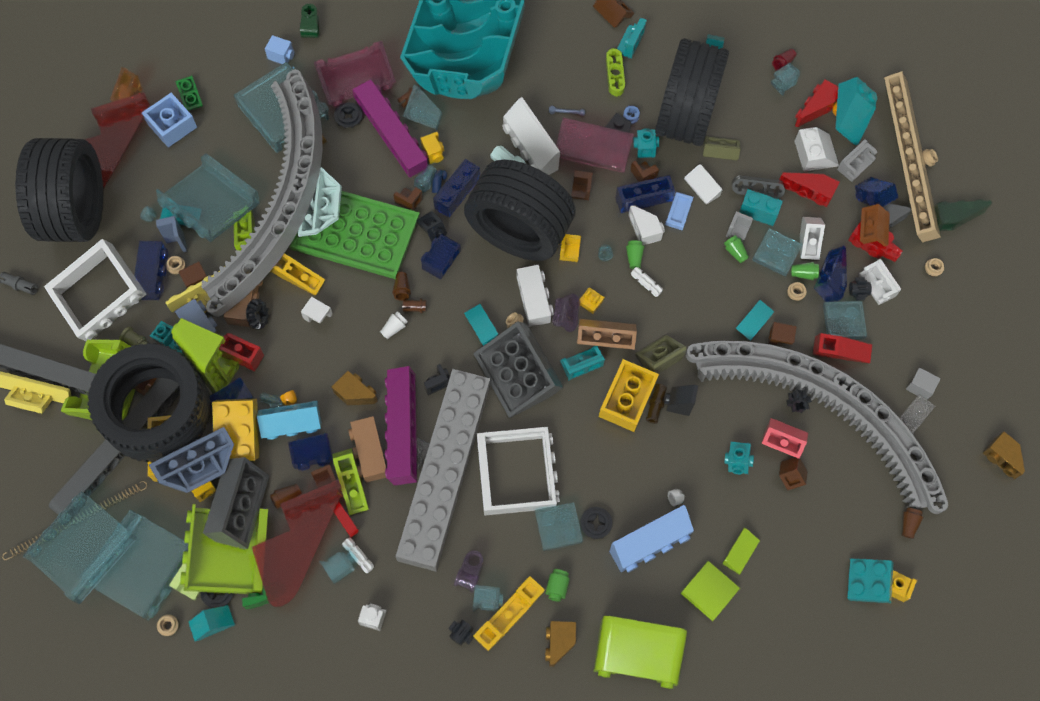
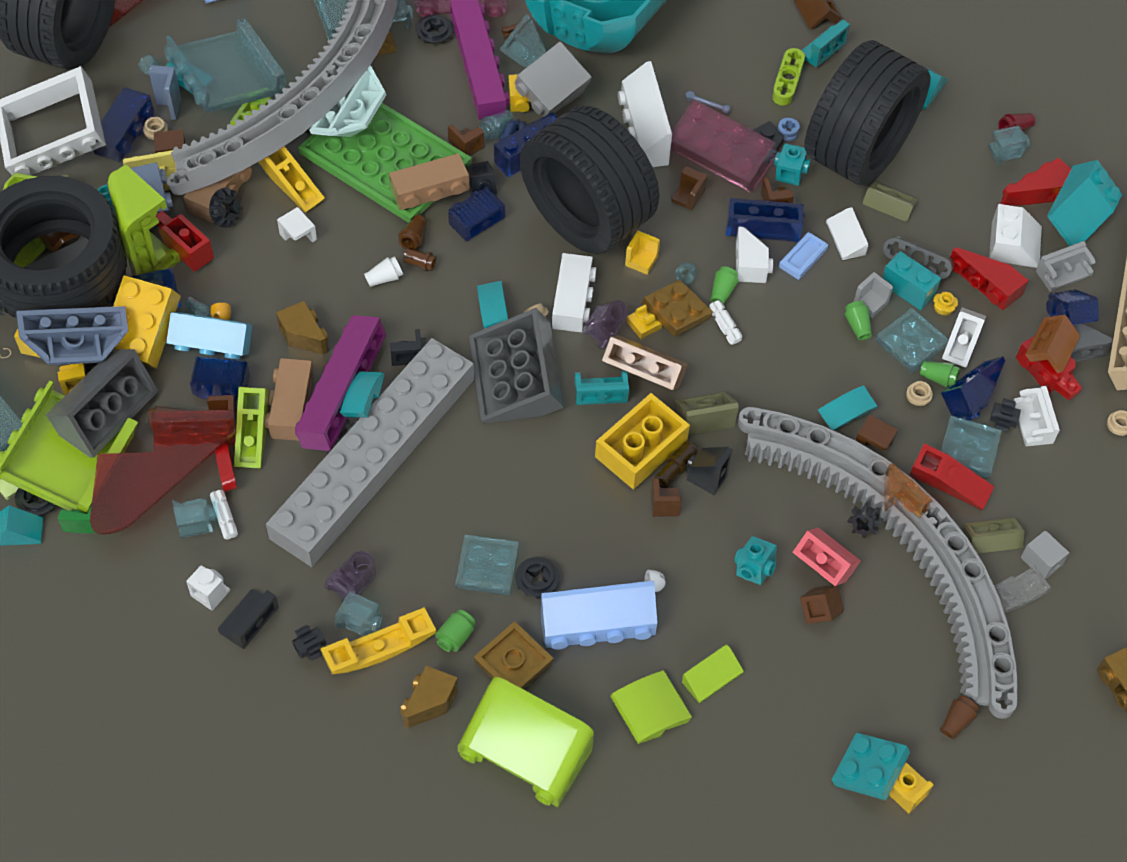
camera: 20 degrees right, 10 degrees down
(399, 244) = (429, 181): none -> medium nougat brick
(408, 627) = (249, 617): none -> black panel
(421, 431) = (360, 394): none -> teal slope
(456, 134) = (552, 80): none -> light grey slope
(549, 459) = (468, 440): white window -> none
(605, 591) = (514, 657): none -> pearl gold plate
(610, 282) = (677, 308): none -> pearl gold plate
(659, 433) = (665, 500): none -> reddish brown panel
(785, 218) = (943, 307): none -> yellow plate
(815, 371) = (900, 487): none -> clear orange slope
(884, 379) = (995, 535): none -> olive slope

